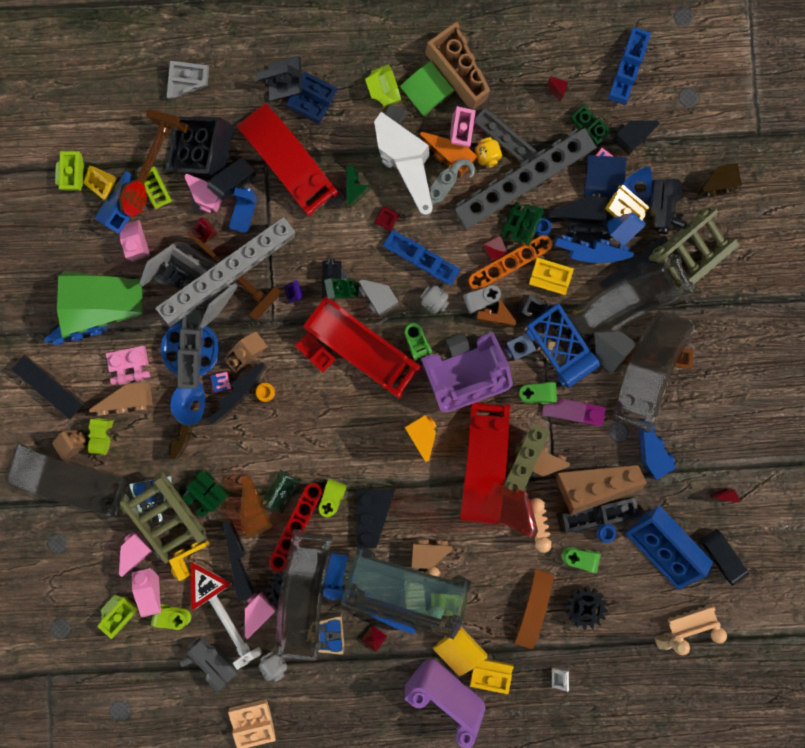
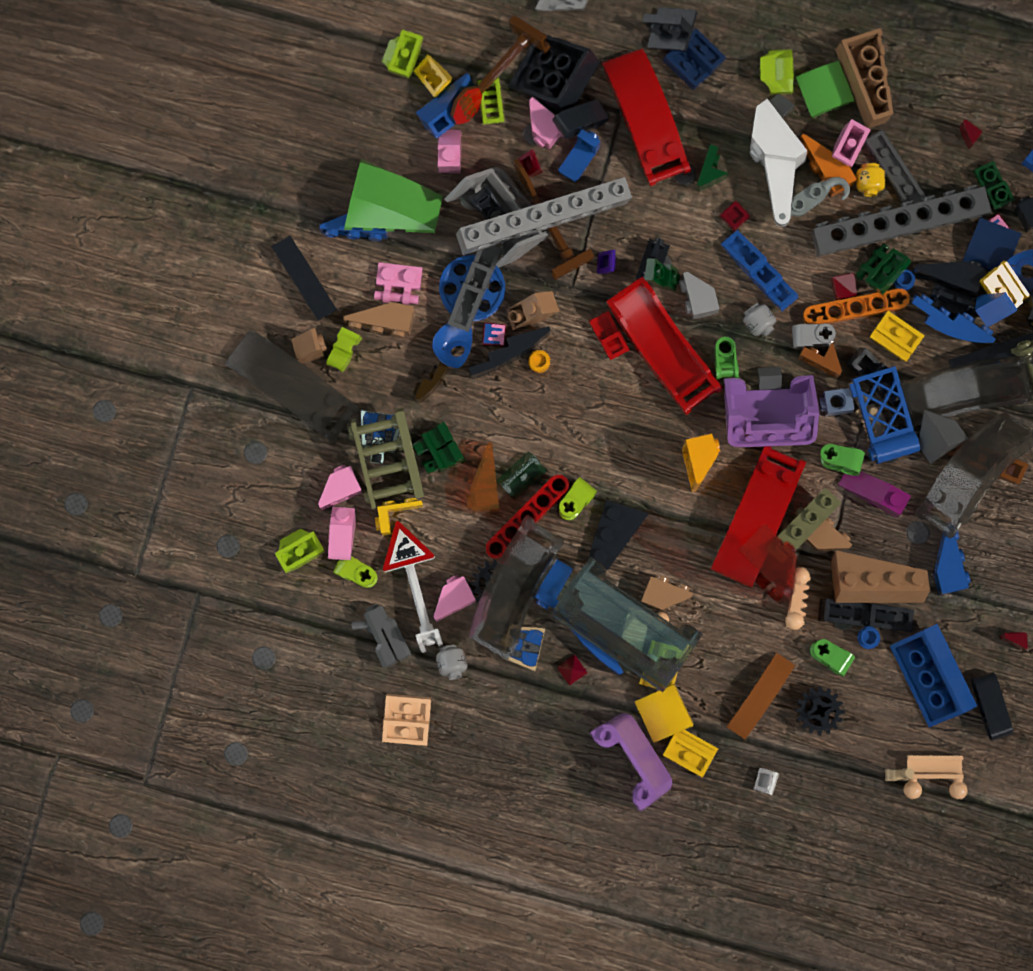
camera: 15 degrees right, 5 degrees down
(236, 551) = (452, 524): black slope -> none

